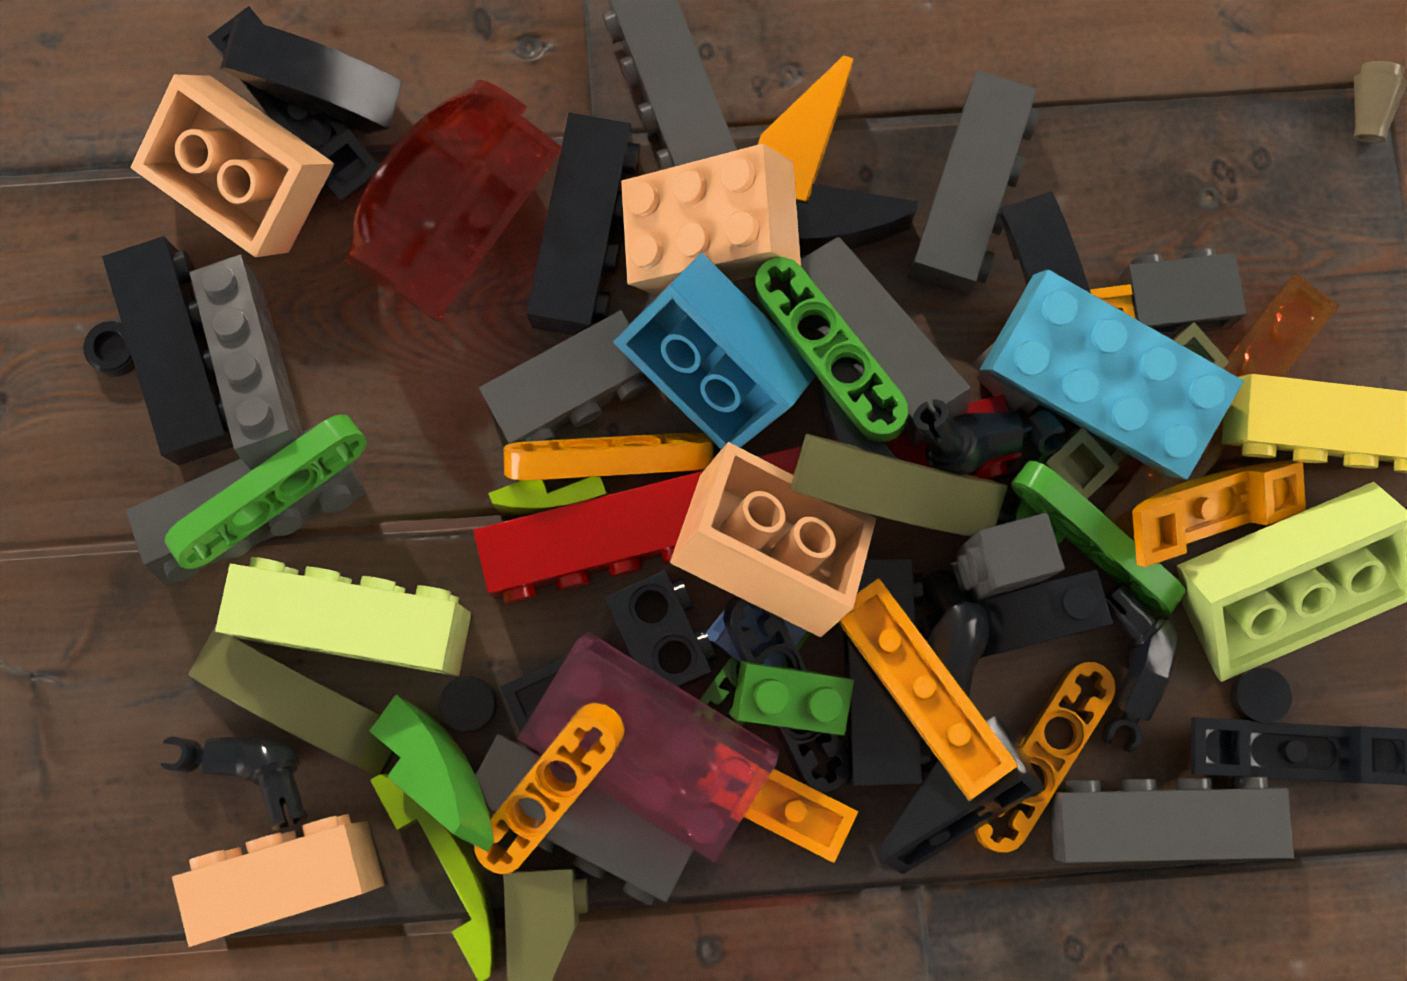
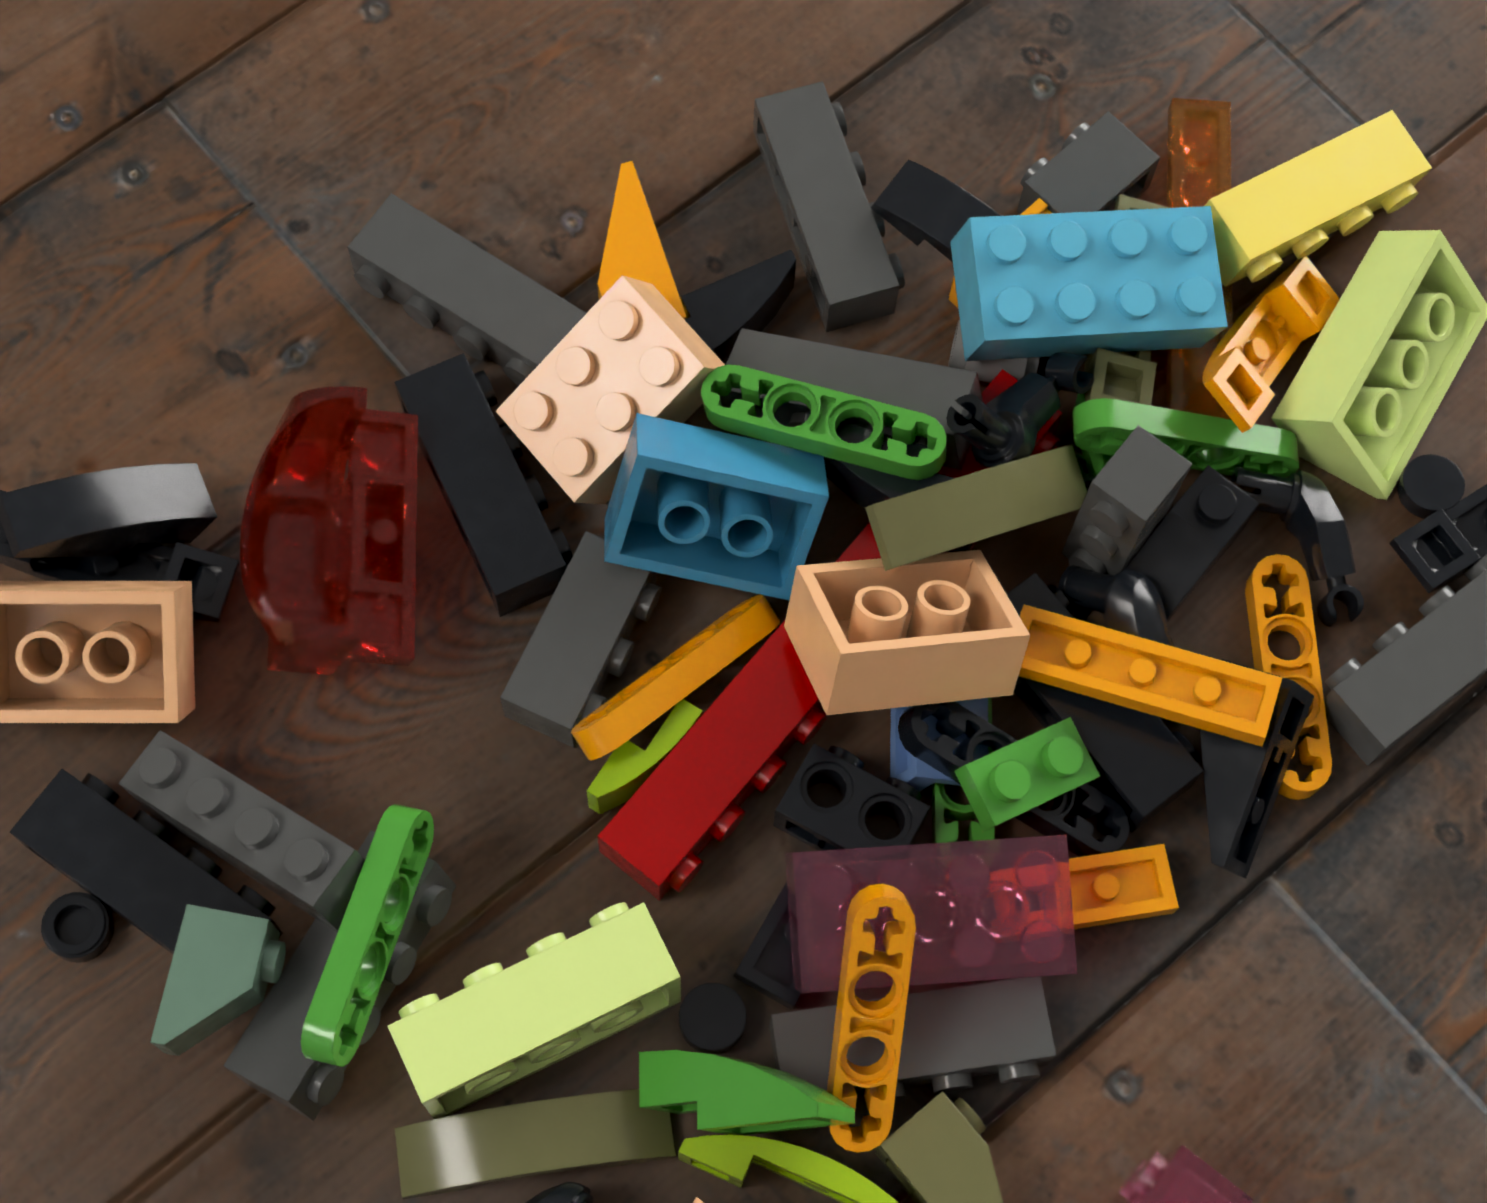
camera: 40 degrees left, 10 degrees down
(153, 447) = (215, 975): none -> sand green slope

